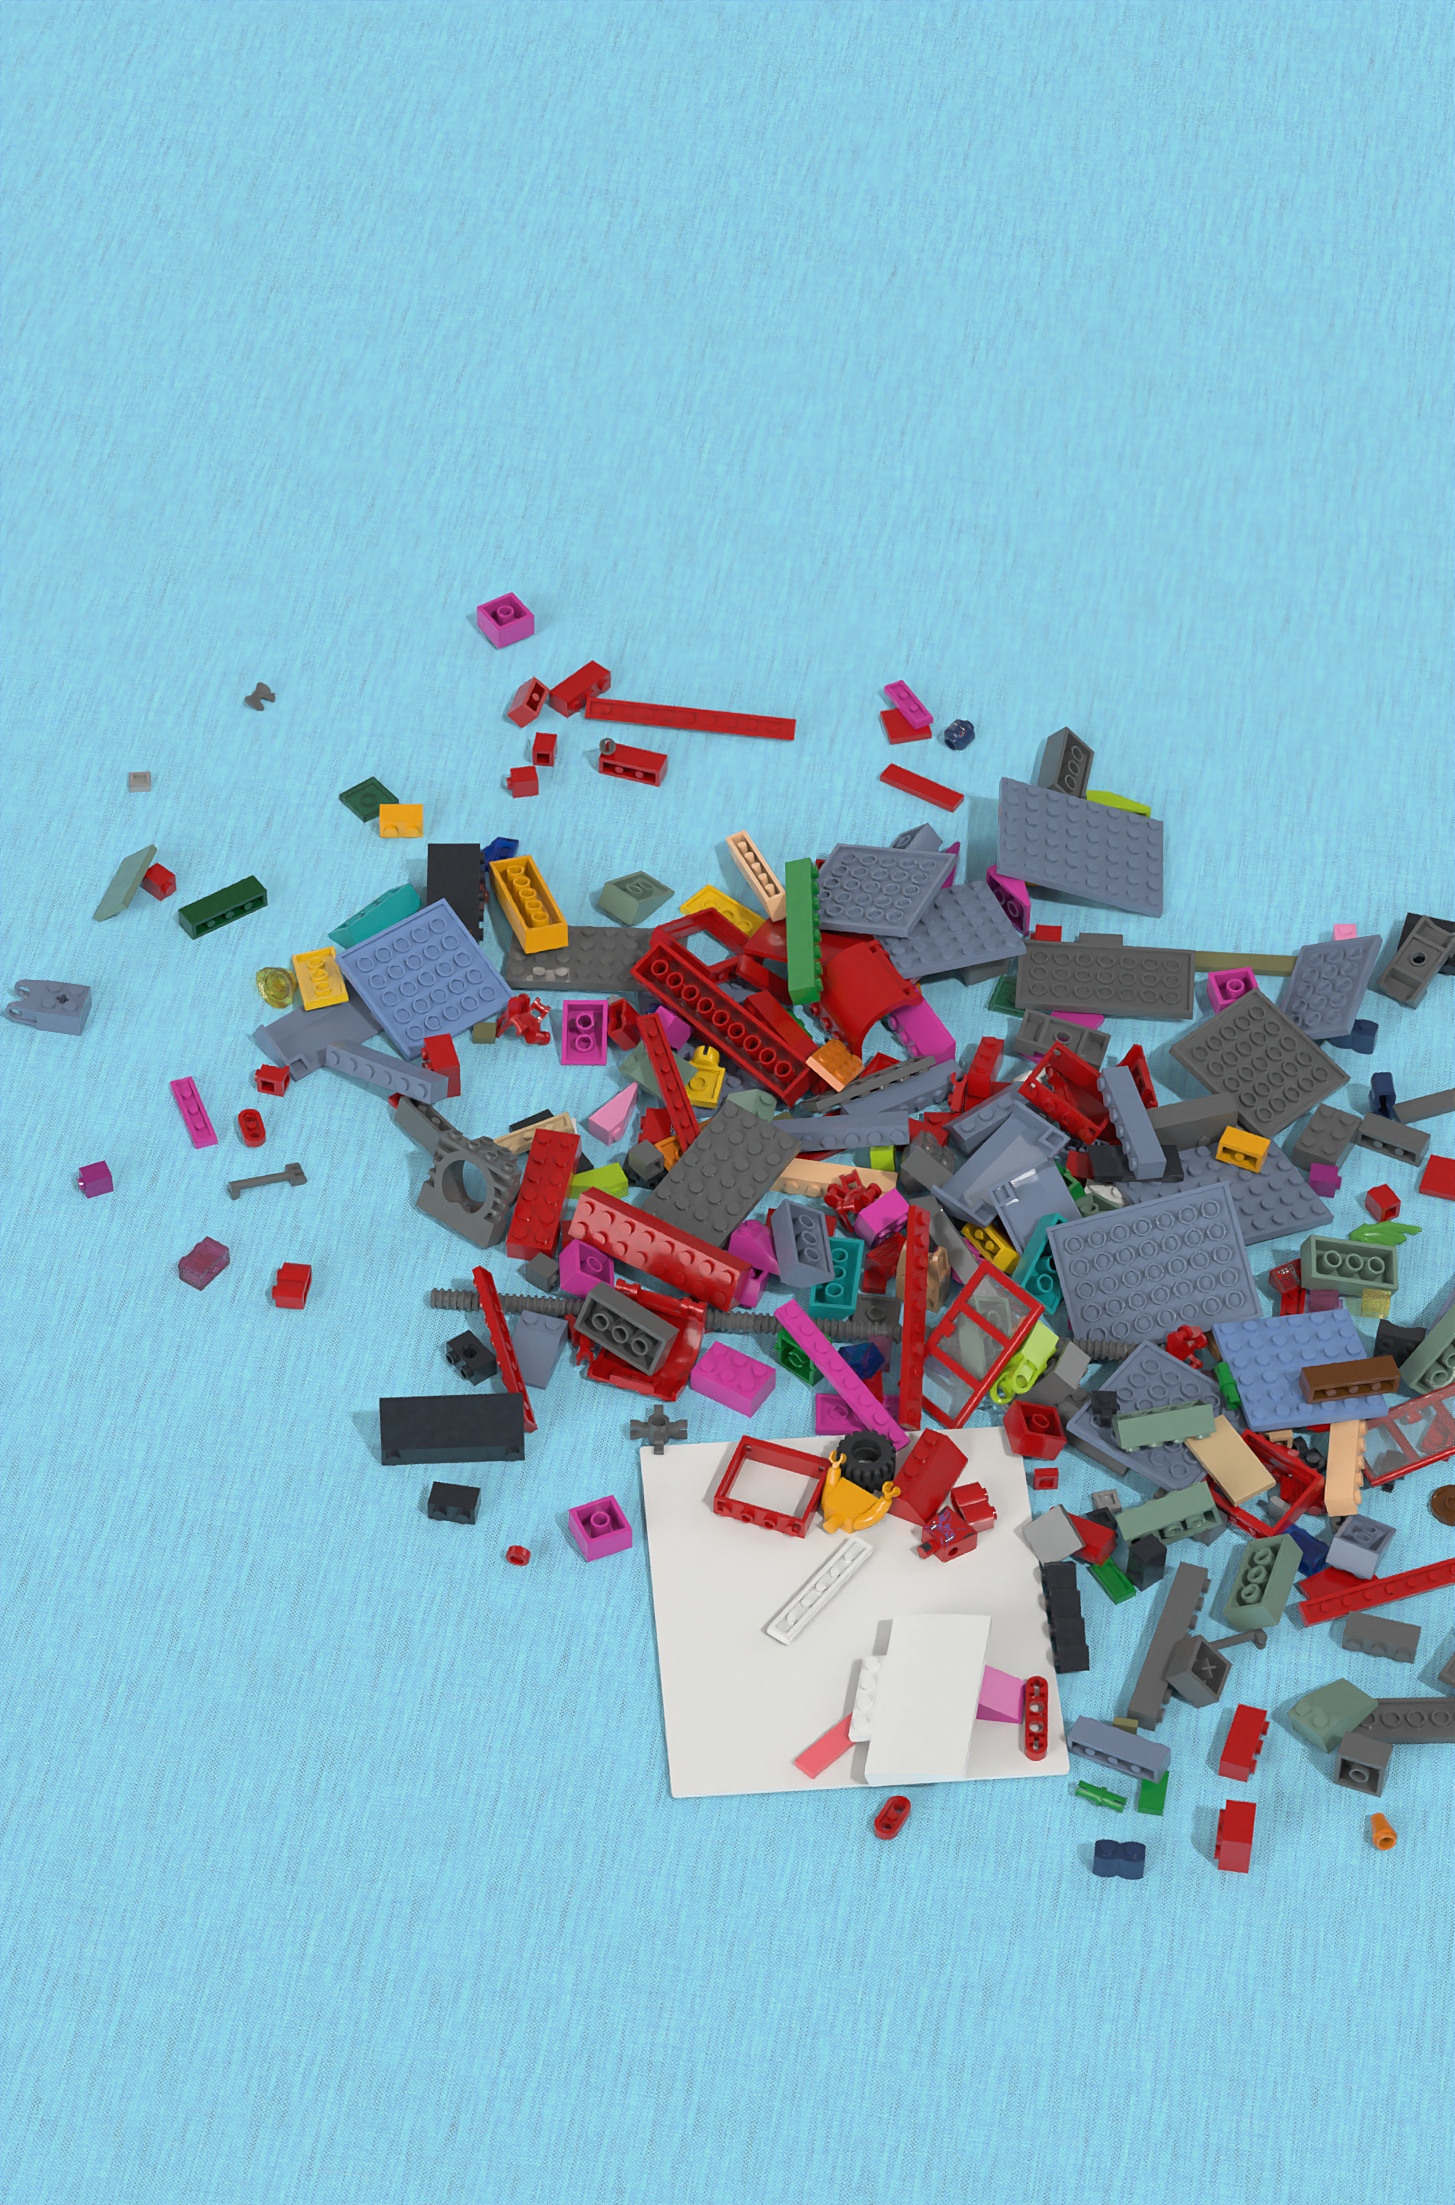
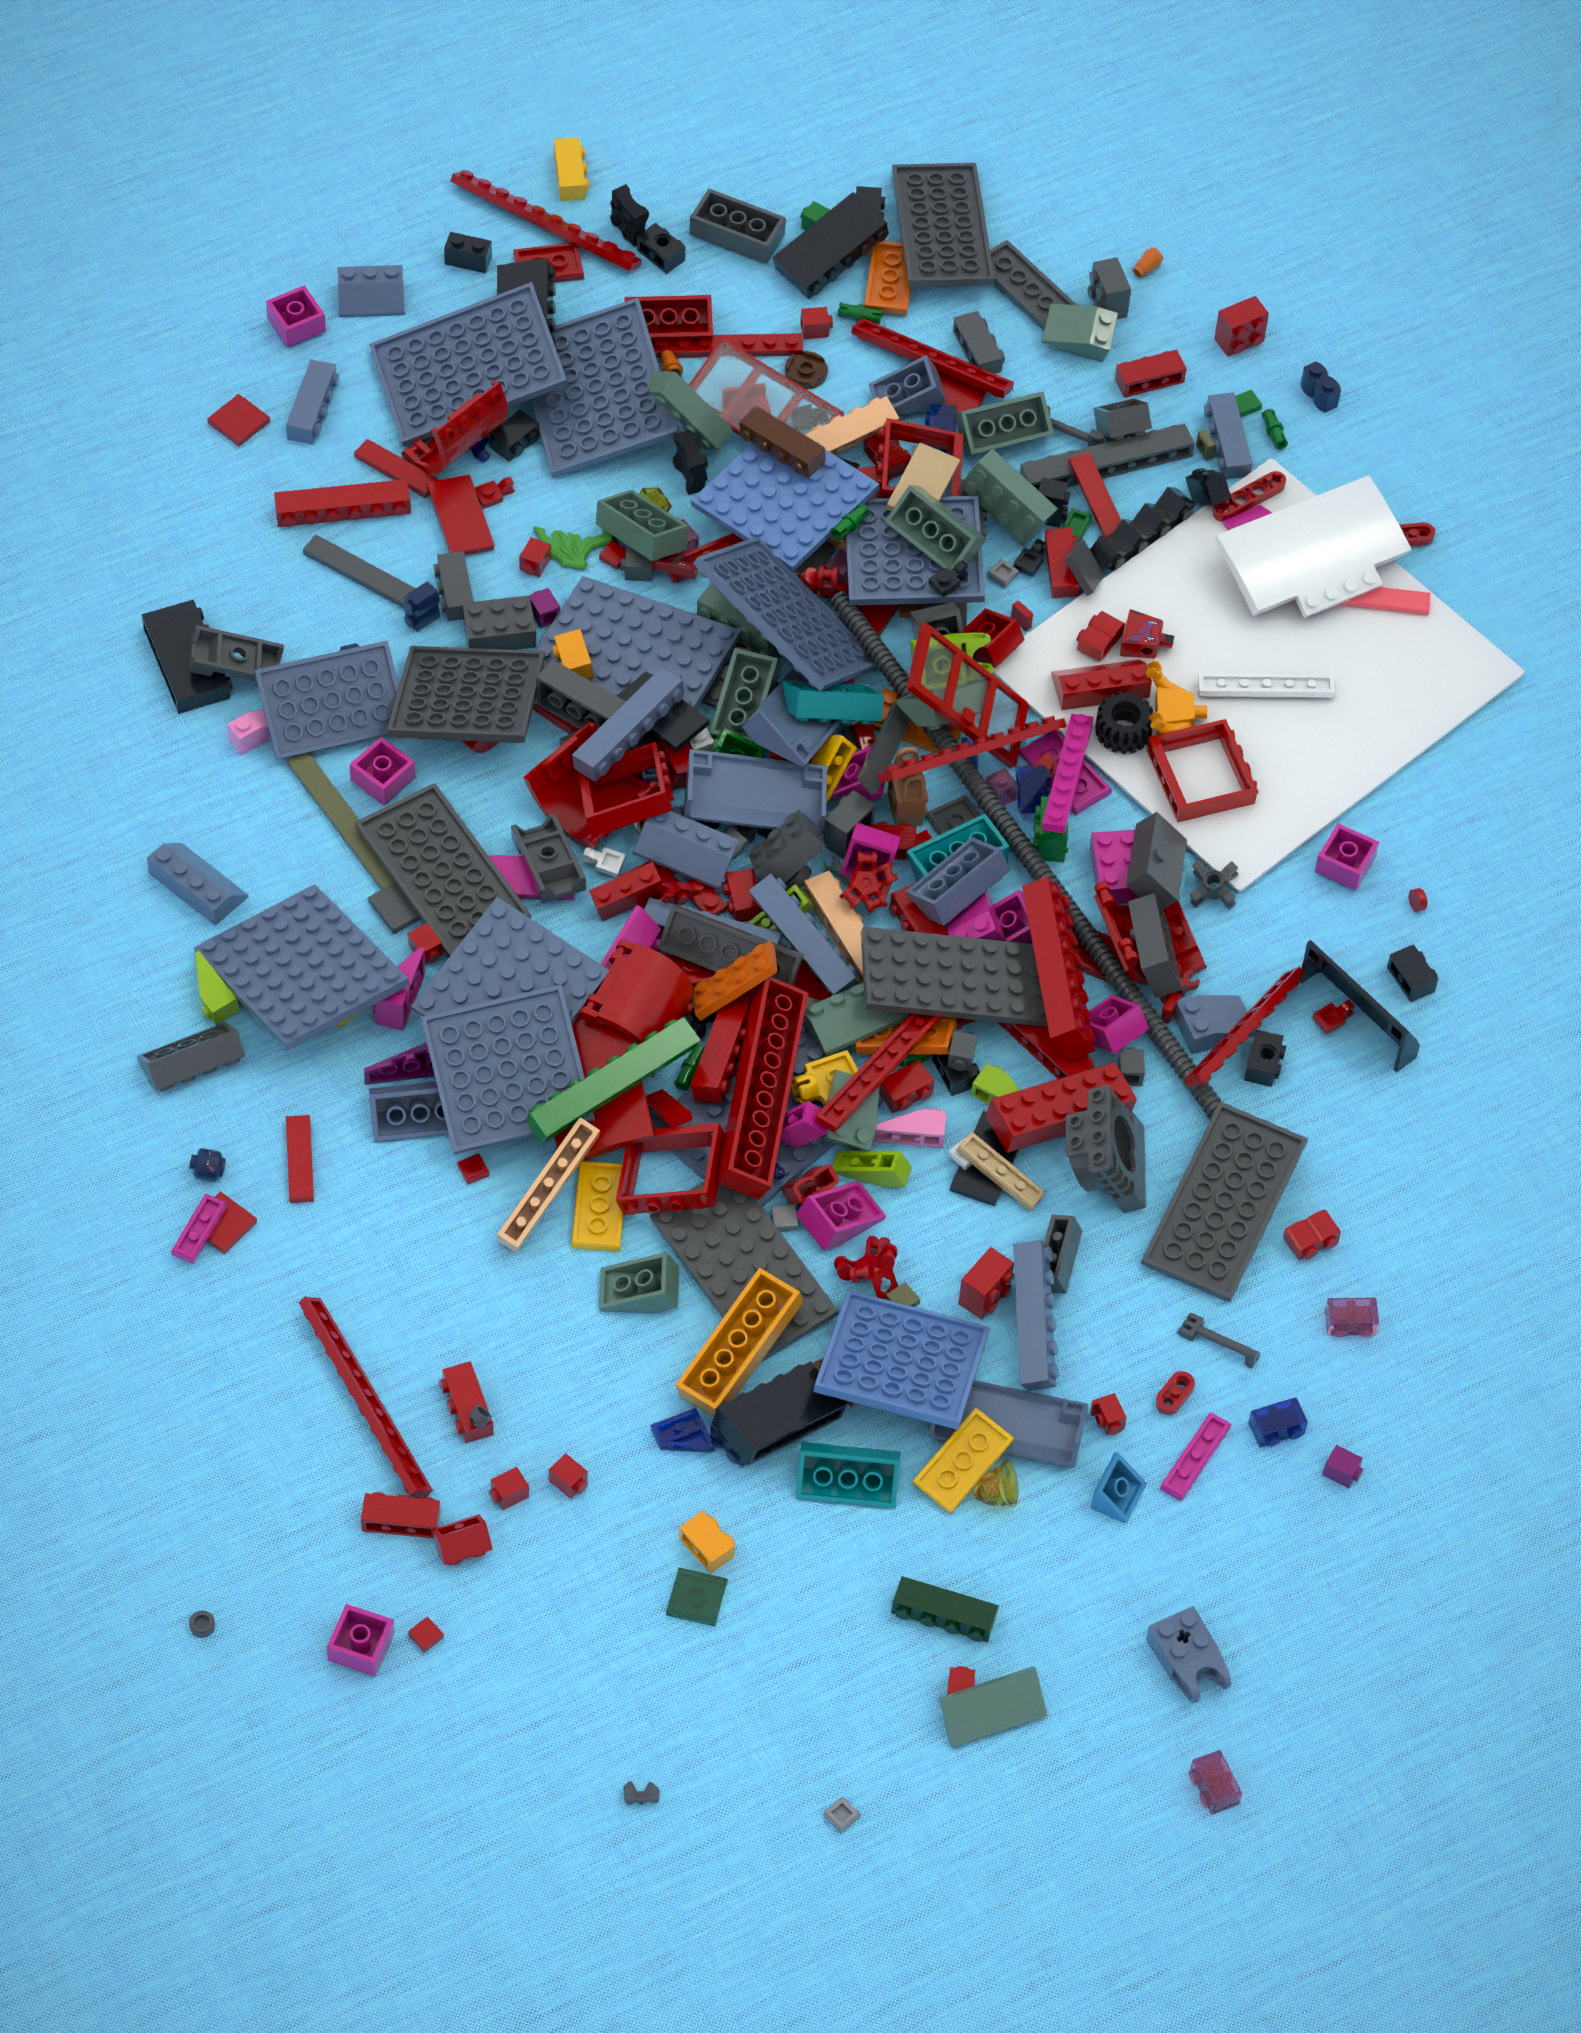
camera: 130 degrees left, 10 degrees up
(167, 1166) = (1278, 1422): none -> clear blue brick
(212, 1047) = (1118, 1489): none -> dark azure slope
(371, 1246) = (1224, 1201): none -> dark grey plate
(482, 662) = (425, 1634): none -> red tile
(598, 1074) = (874, 1167): none -> lime slope
(600, 569) = (202, 1624): none -> dark grey tile
(704, 1383) = (1157, 860): none -> dark grey brick
(1066, 1682) = (1208, 487): none -> black brick
(1130, 1604) = (1095, 493): none -> red tile
(1224, 850) = (195, 881): none -> sand blue slope

